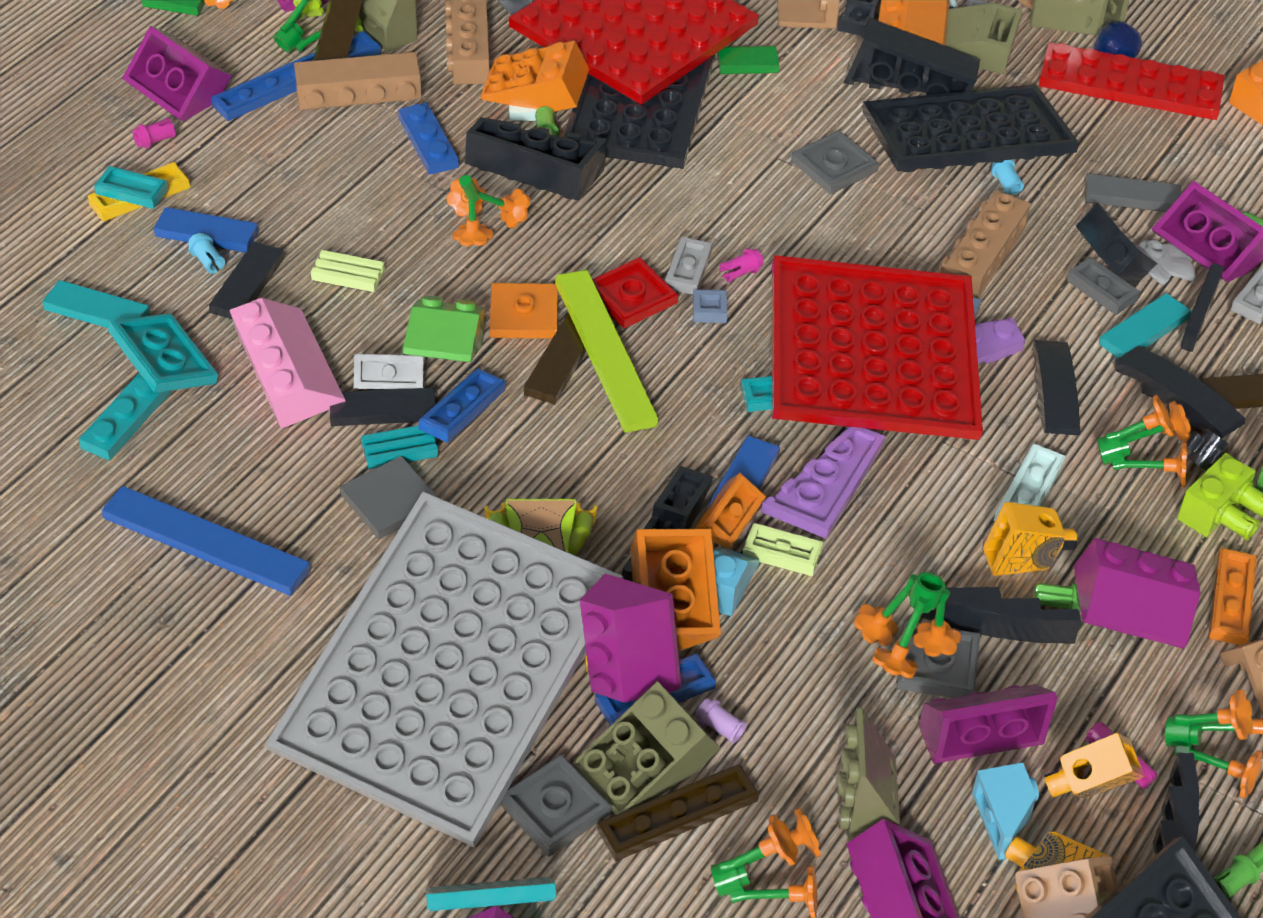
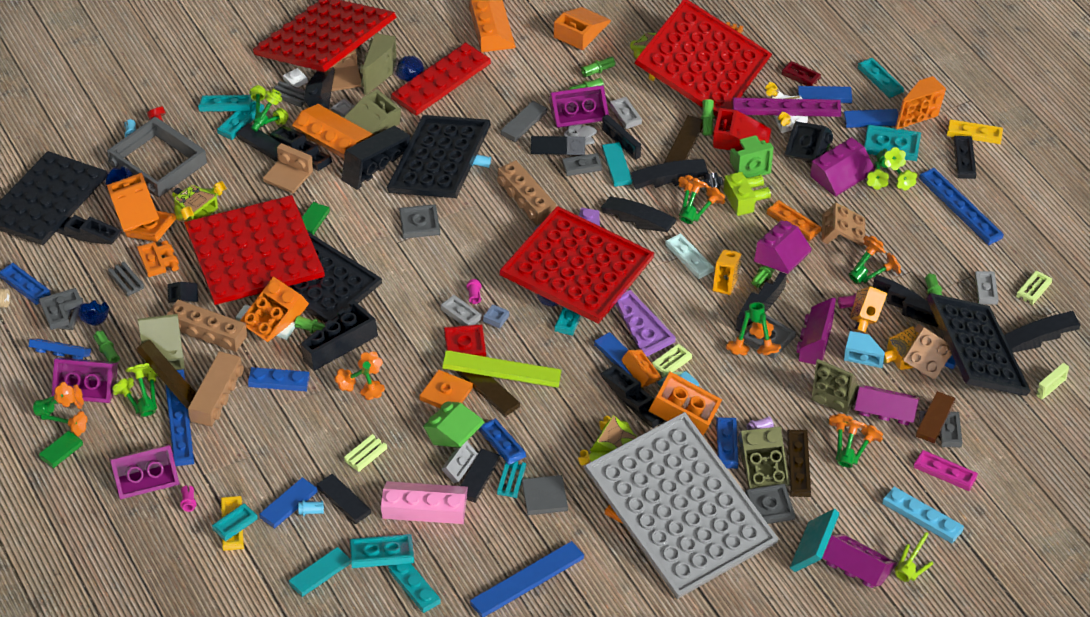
camera: 60 degrees left, 0 degrees up
(629, 638) = (717, 425): magenta slope -> none

